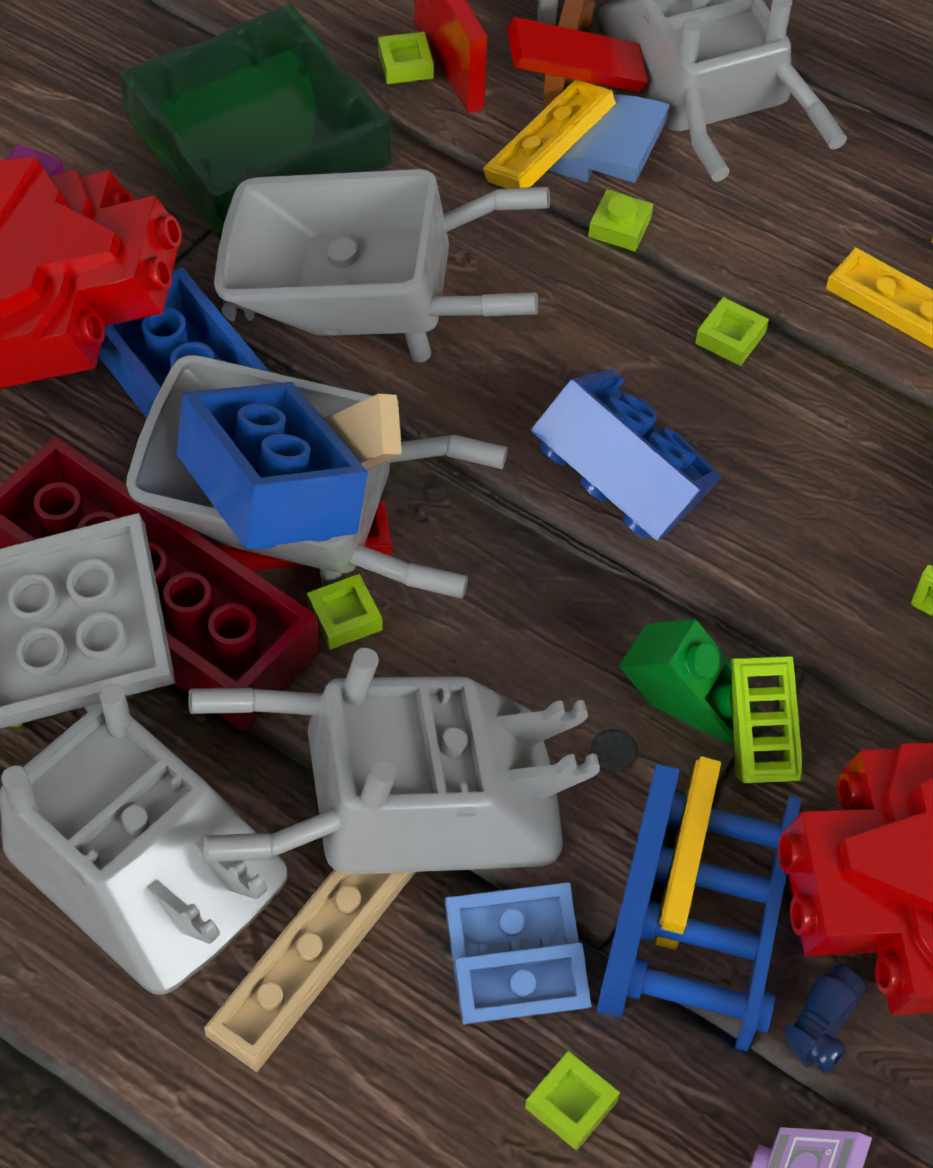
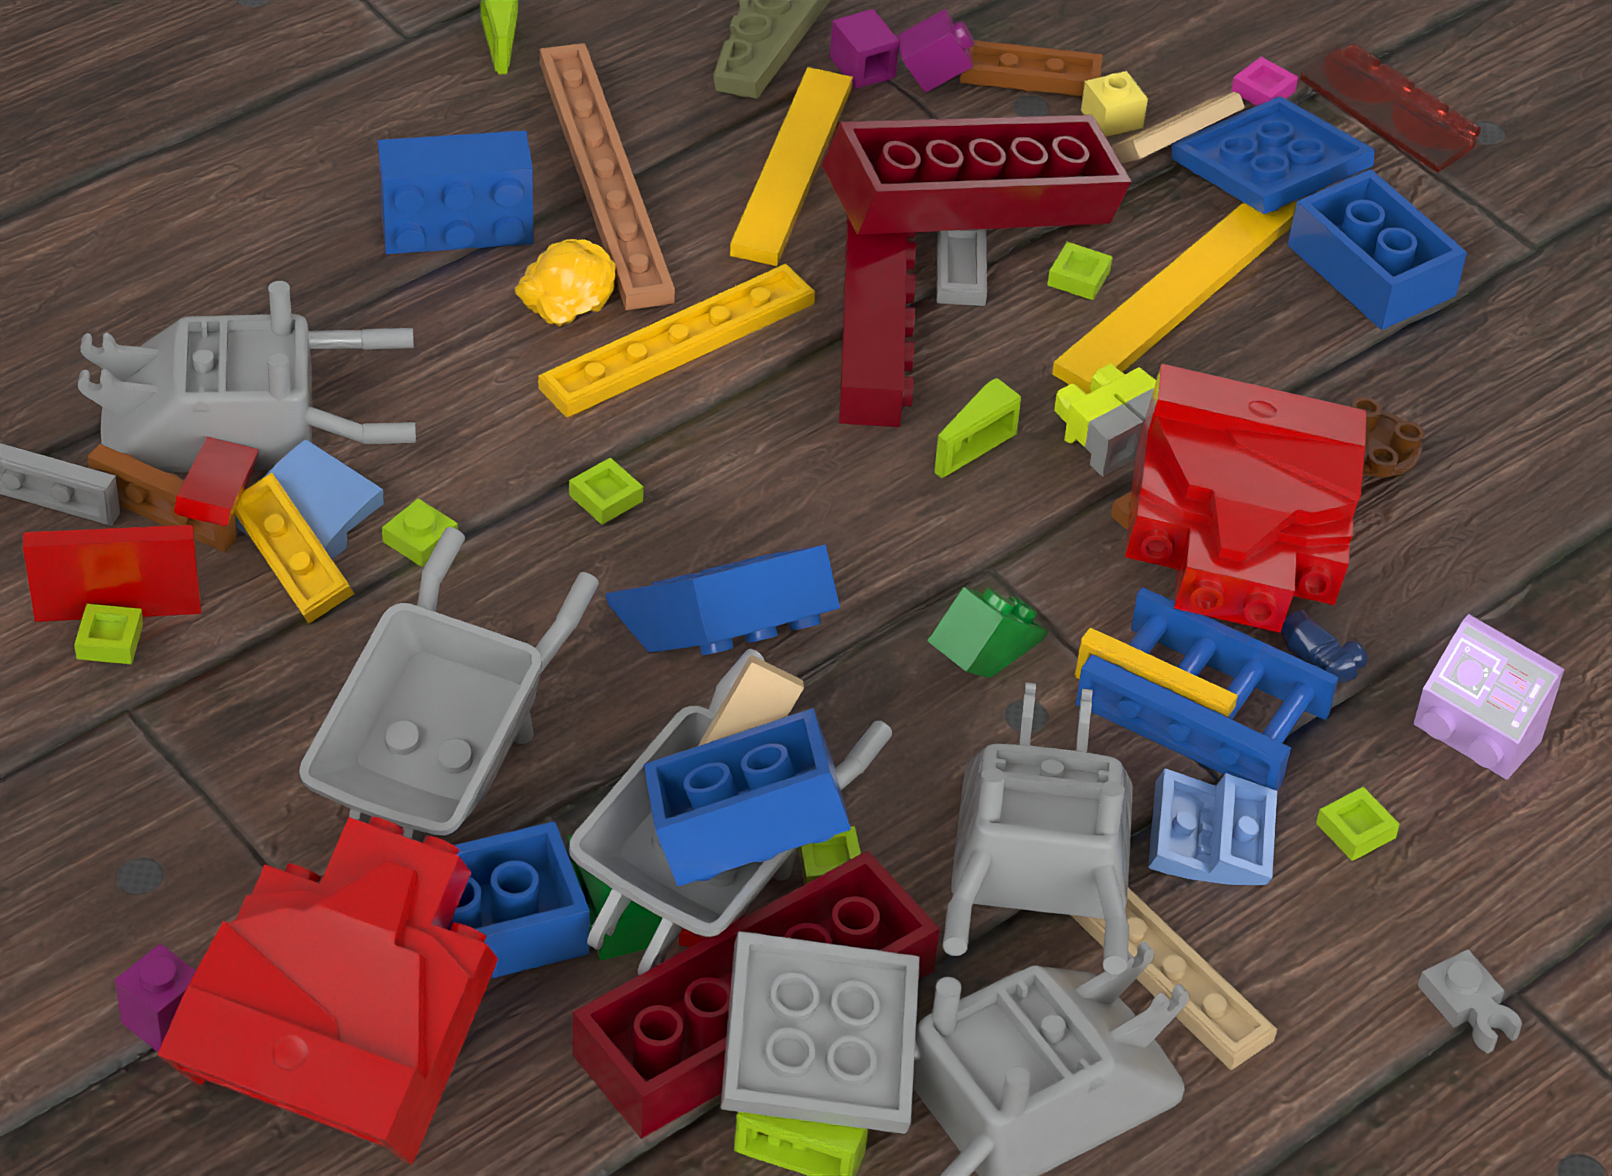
camera: 75 degrees left, 10 degrees down
(253, 107) = (148, 779): clear green tile -> none
(789, 740) = (1071, 598): lime slope -> none

